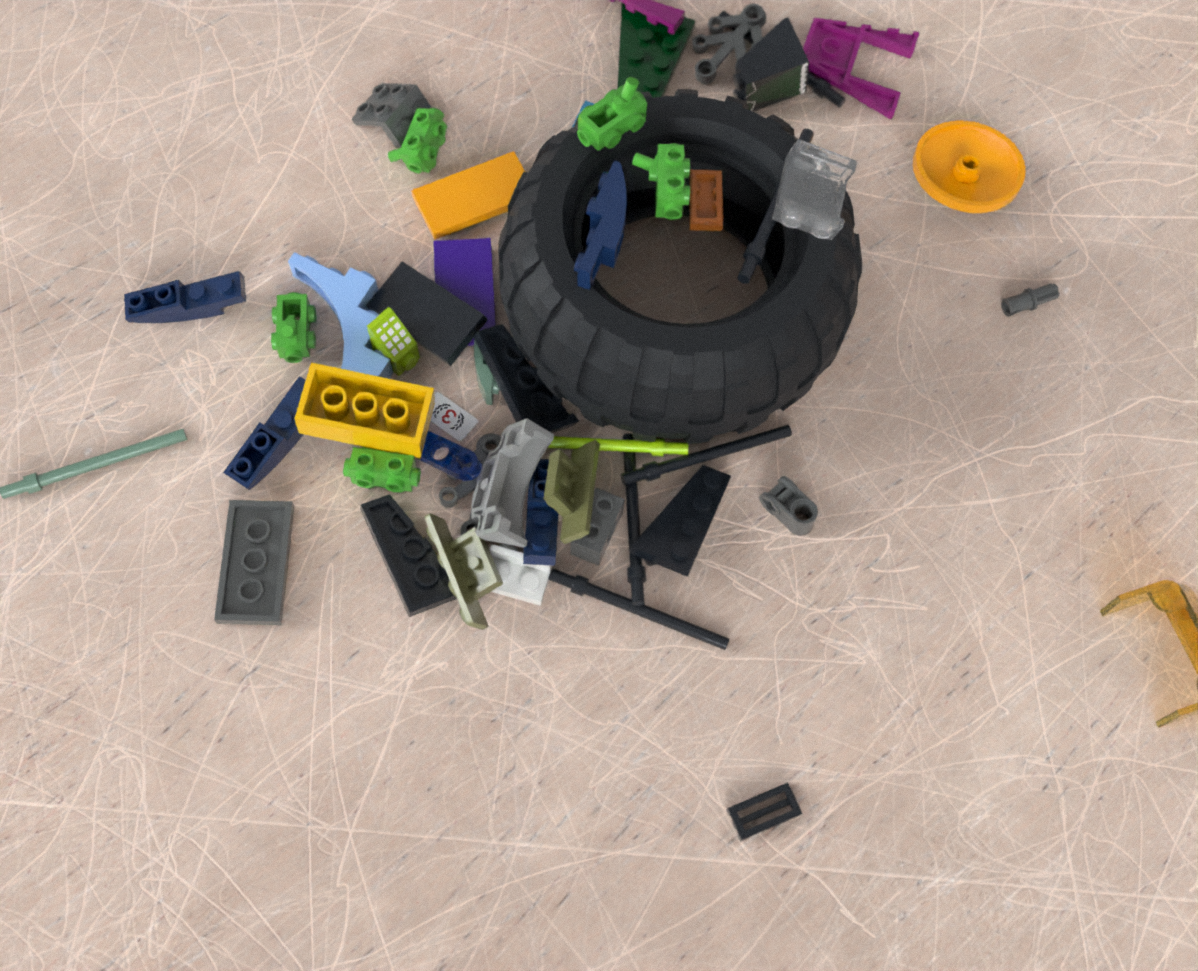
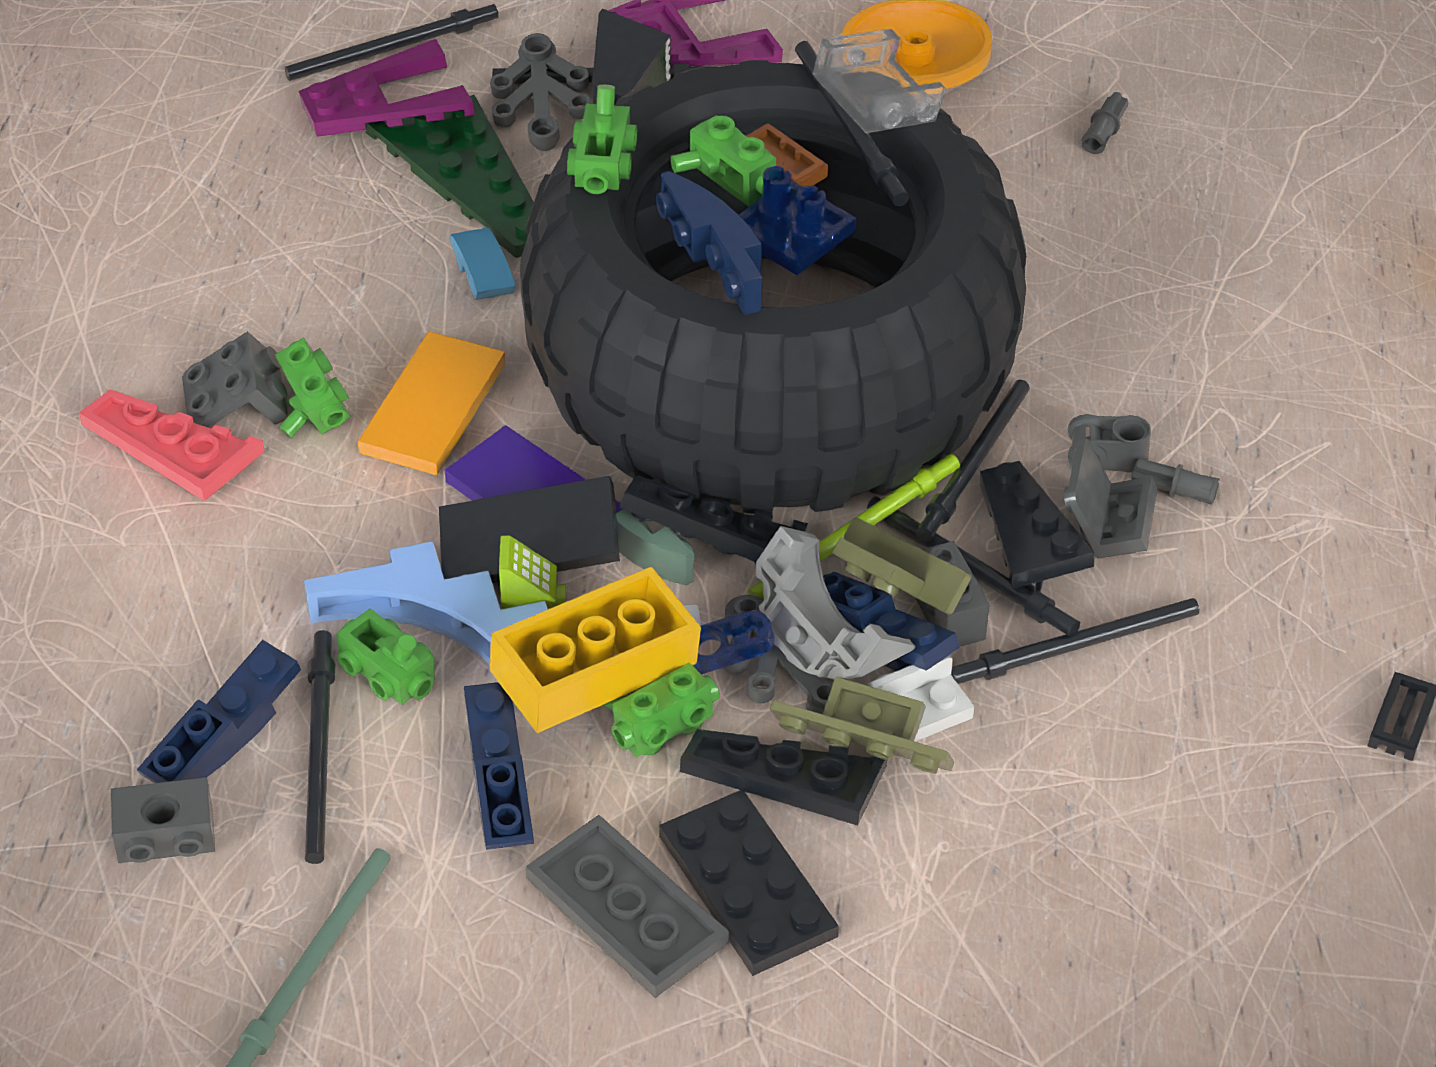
camera: 40 degrees left, 20 degrees down
(96, 320) = (162, 820): none -> dark grey brick
(261, 310) = (321, 675): none -> black bar
(327, 600) = (748, 881): none -> black piece
(331, 123) = (171, 443): none -> coral wing
(660, 248) = (795, 221): none -> clear blue plate
(739, 545) = (1110, 515): none -> dark grey bracket
(804, 560) = (1178, 480): none -> dark grey axle

